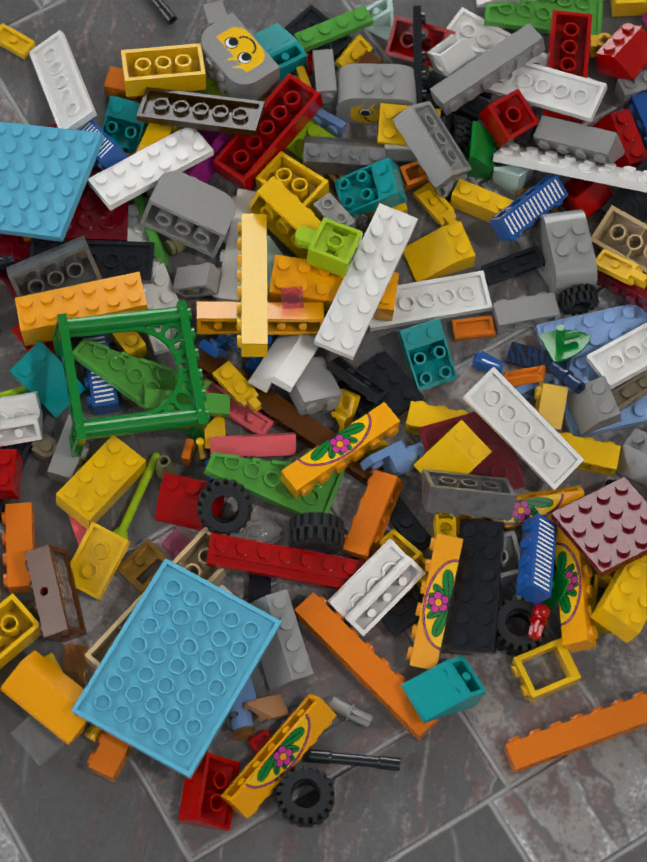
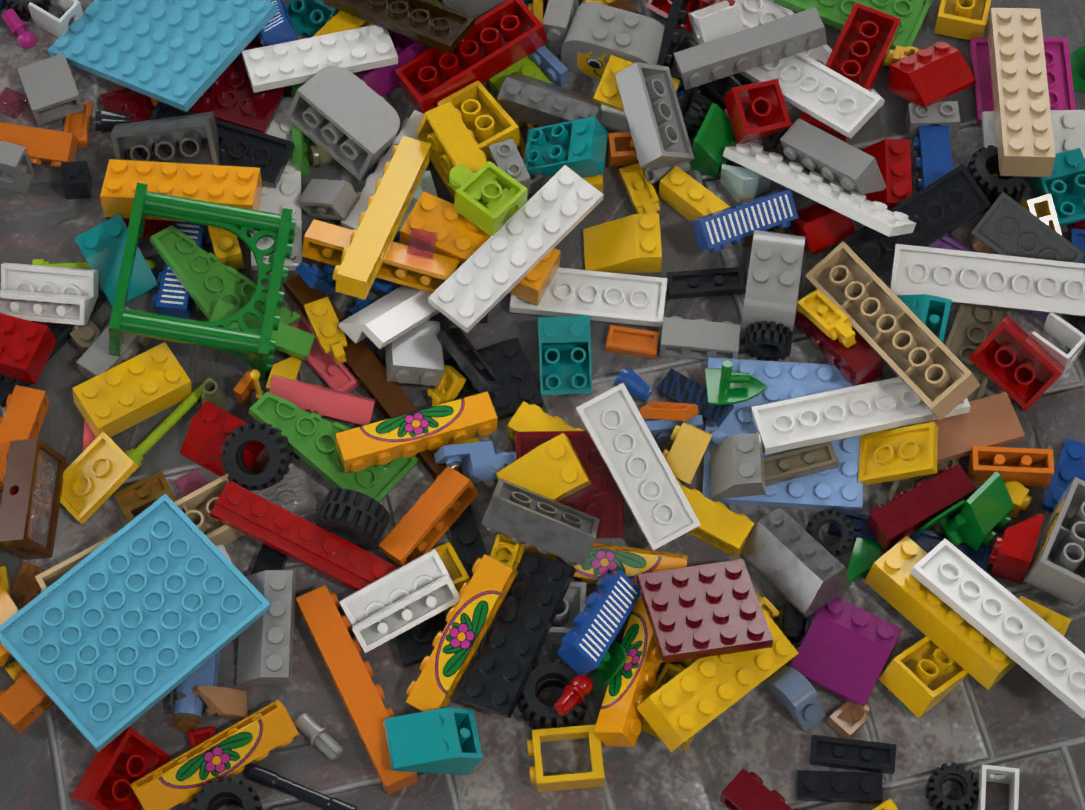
camera: 20 degrees right, 5 degrees down
(566, 377) = (714, 424): dark blue pin -> none

